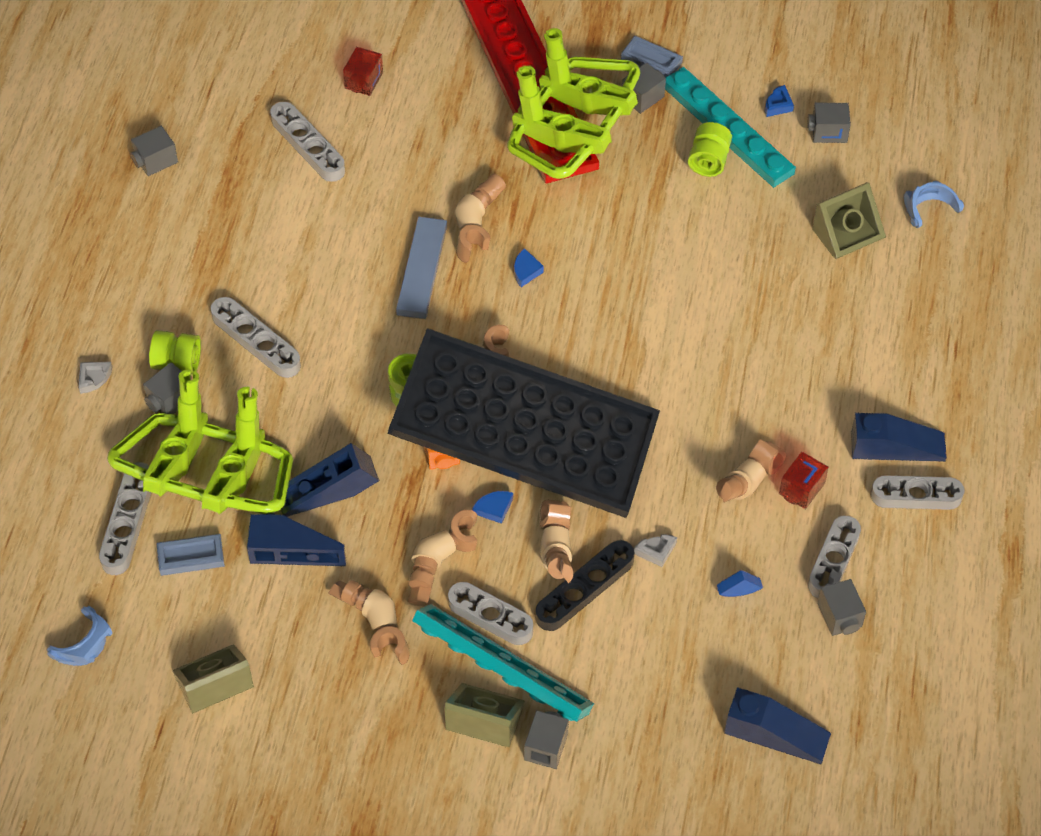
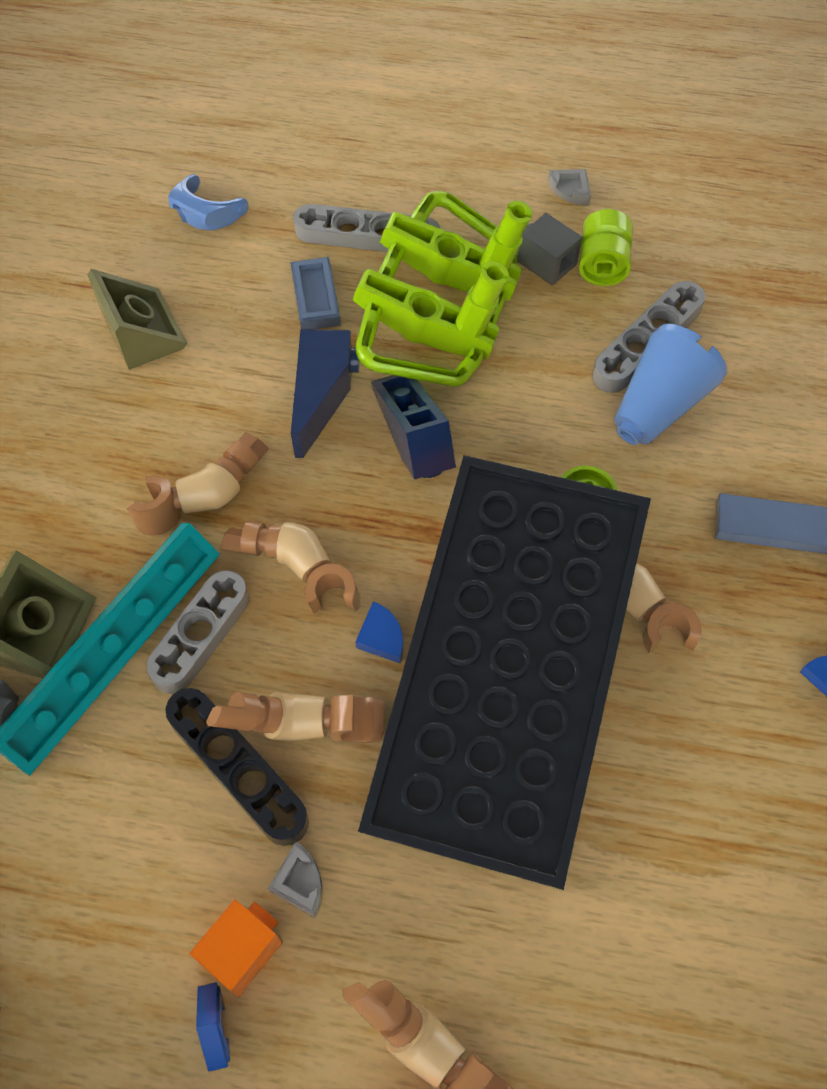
camera: 90 degrees right, 5 degrees up
(312, 325) = (667, 383): none -> medium blue cone
(697, 572) = (238, 945): none -> orange brick

